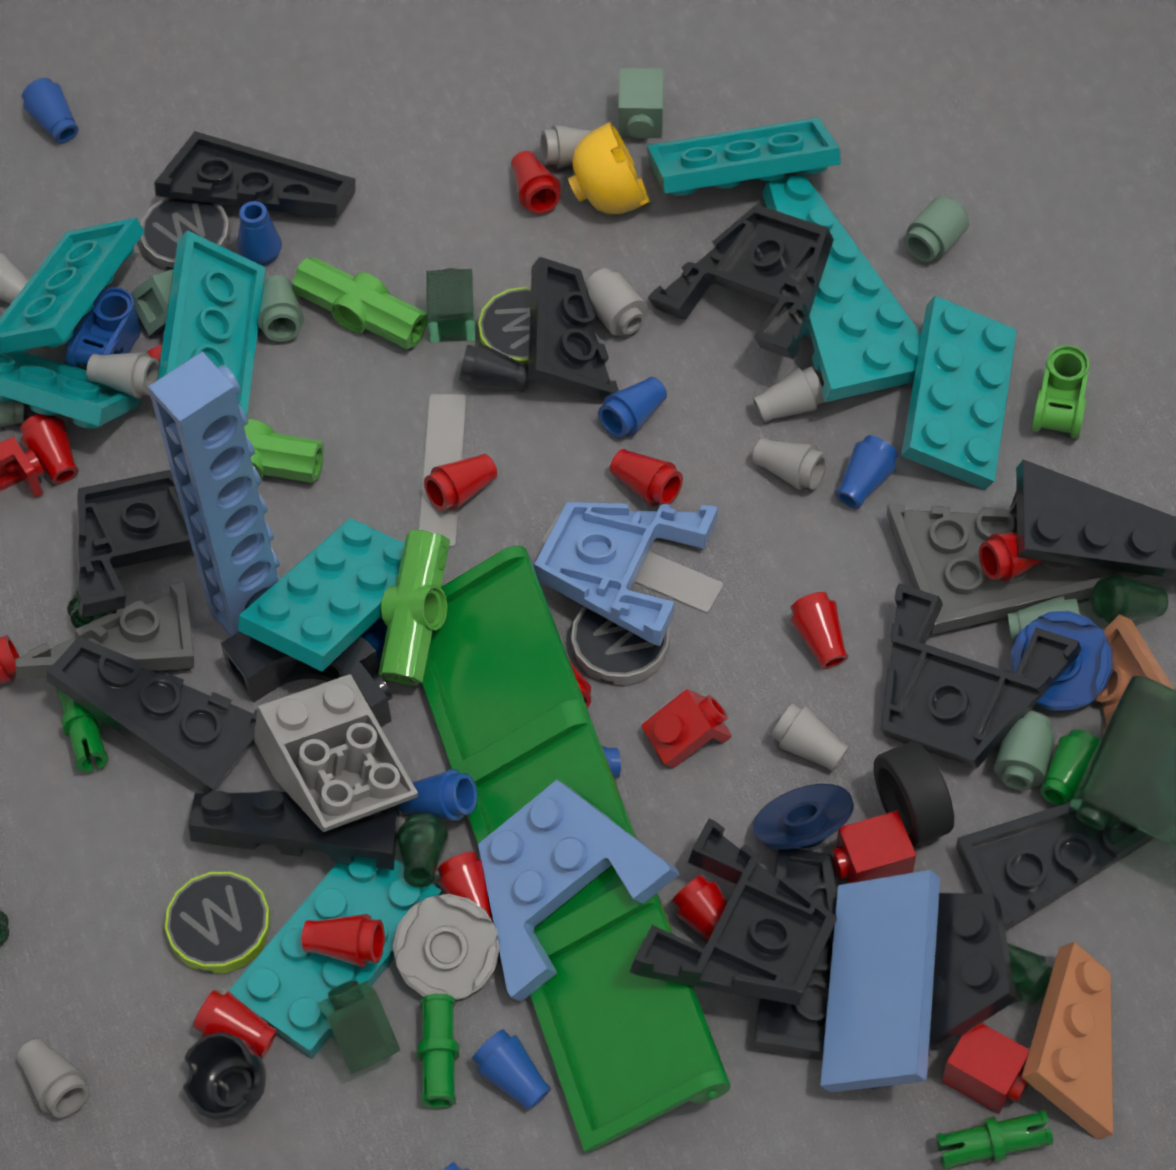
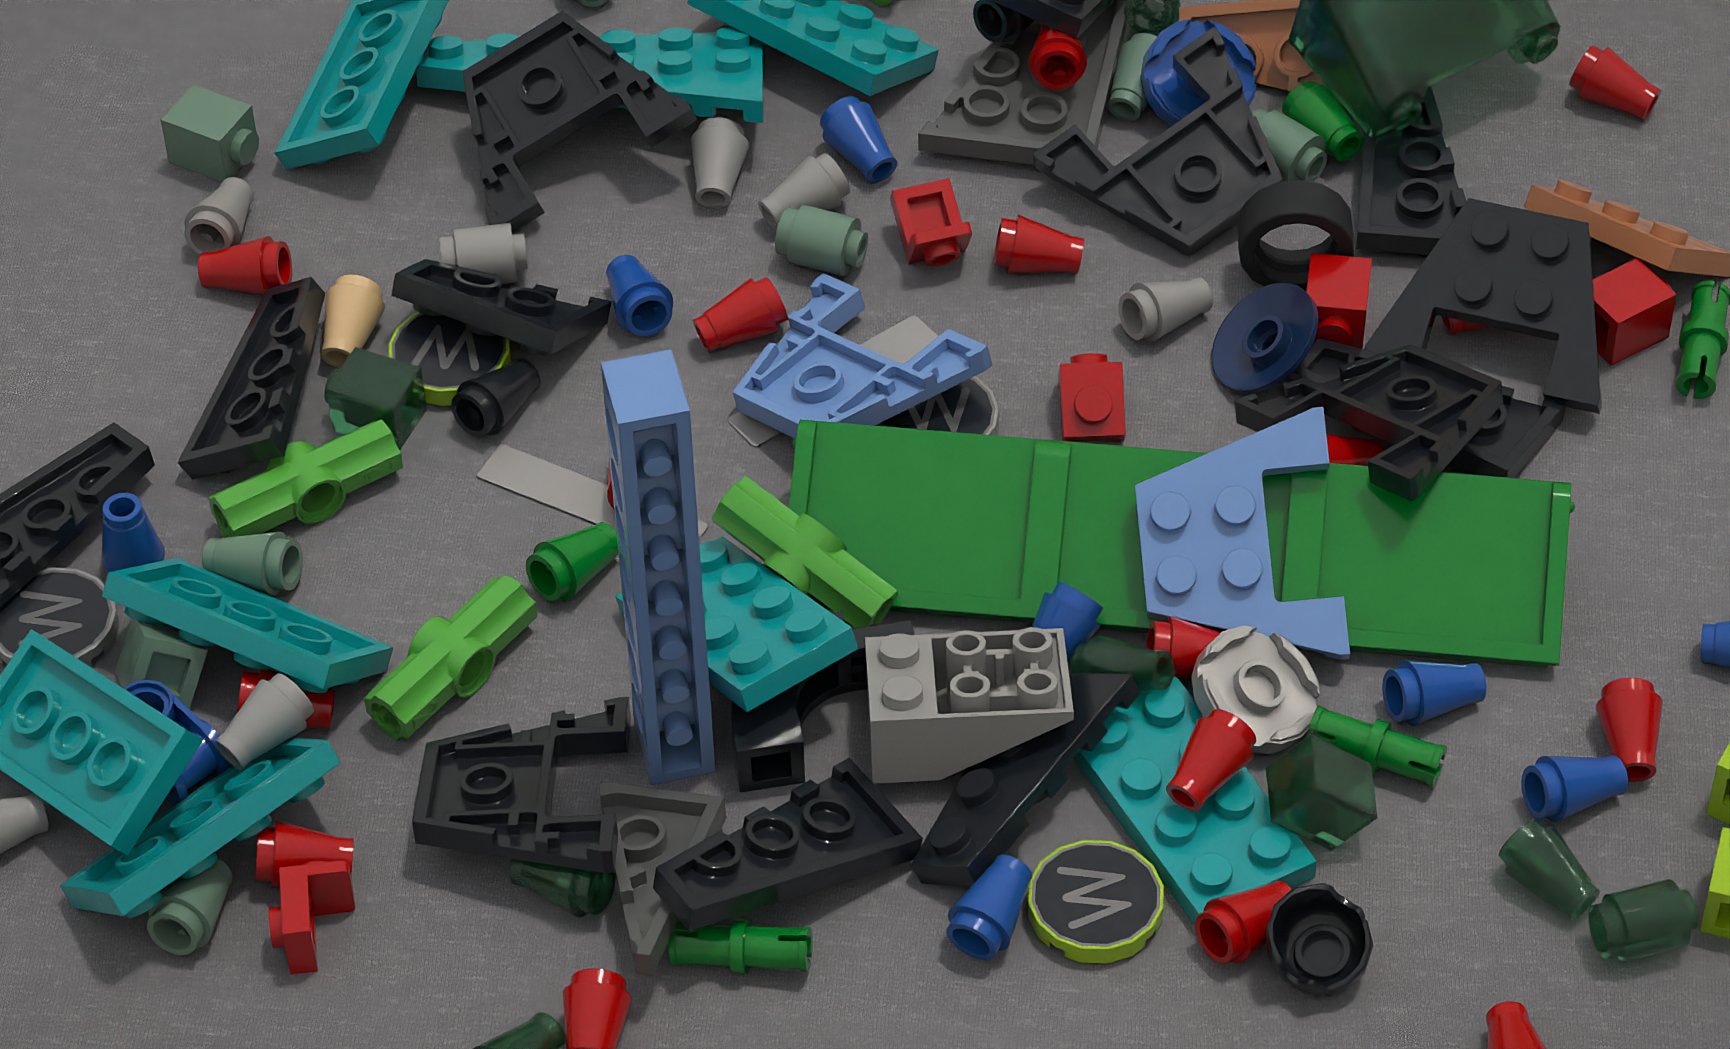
camera: 65 degrees left, 10 degrees down
(171, 856) = (989, 910): none -> blue cone
(368, 480) = (571, 561): none -> green cone
(416, 238) = (261, 385): none -> black wing
(514, 257) = (350, 316): none -> tan cone
(606, 173) = (299, 188): yellow cylinder -> none
(746, 491) = (821, 239): none -> sand green brick
(803, 551) = (930, 223): none -> red bracket
(881, 982) = (1540, 339): medium blue tile -> none

